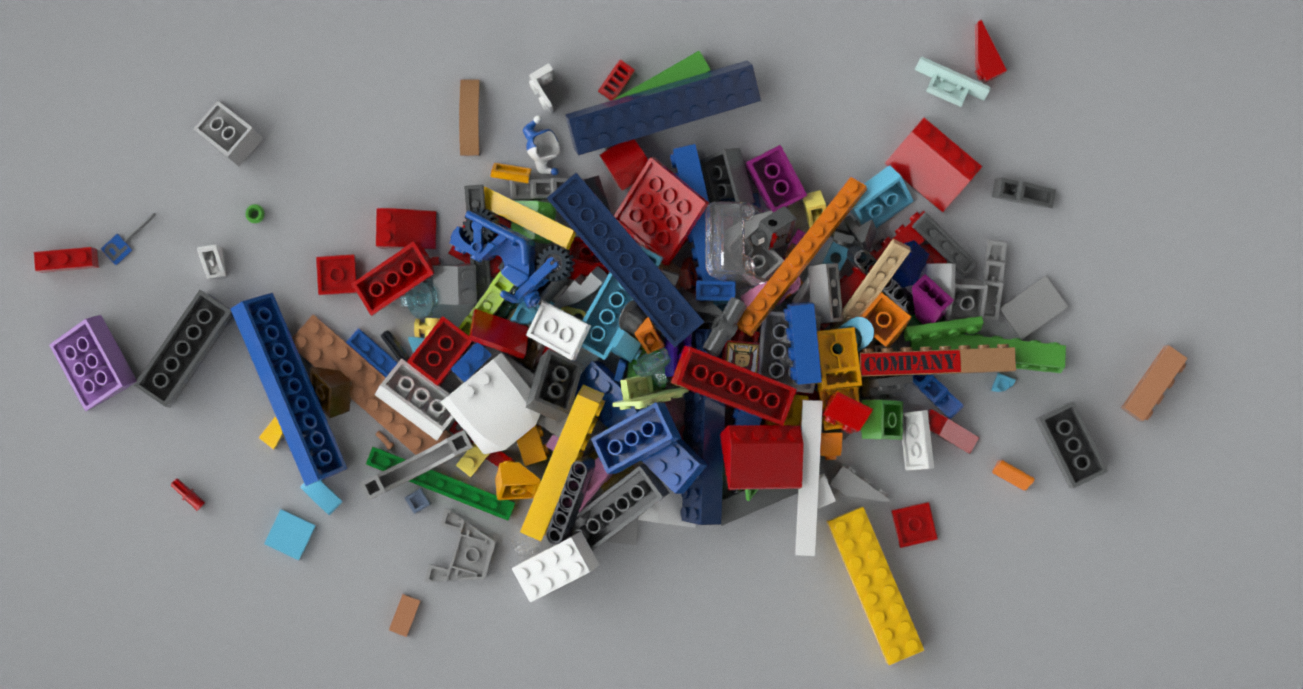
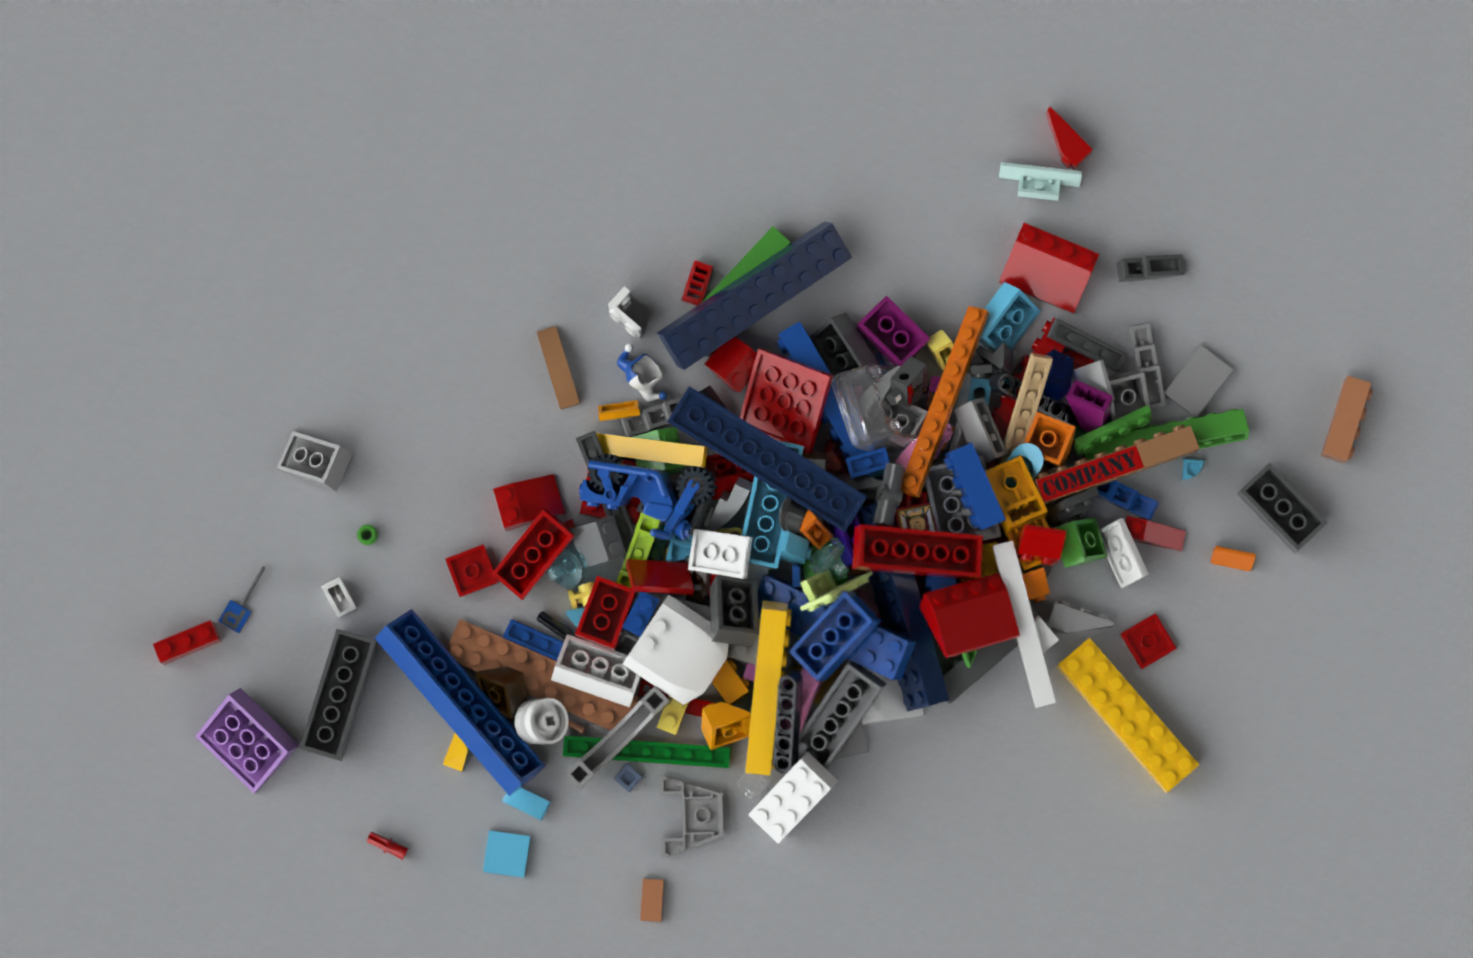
camera: 15 degrees left, 5 degrees down
(355, 428) = (541, 721): none -> white wheel

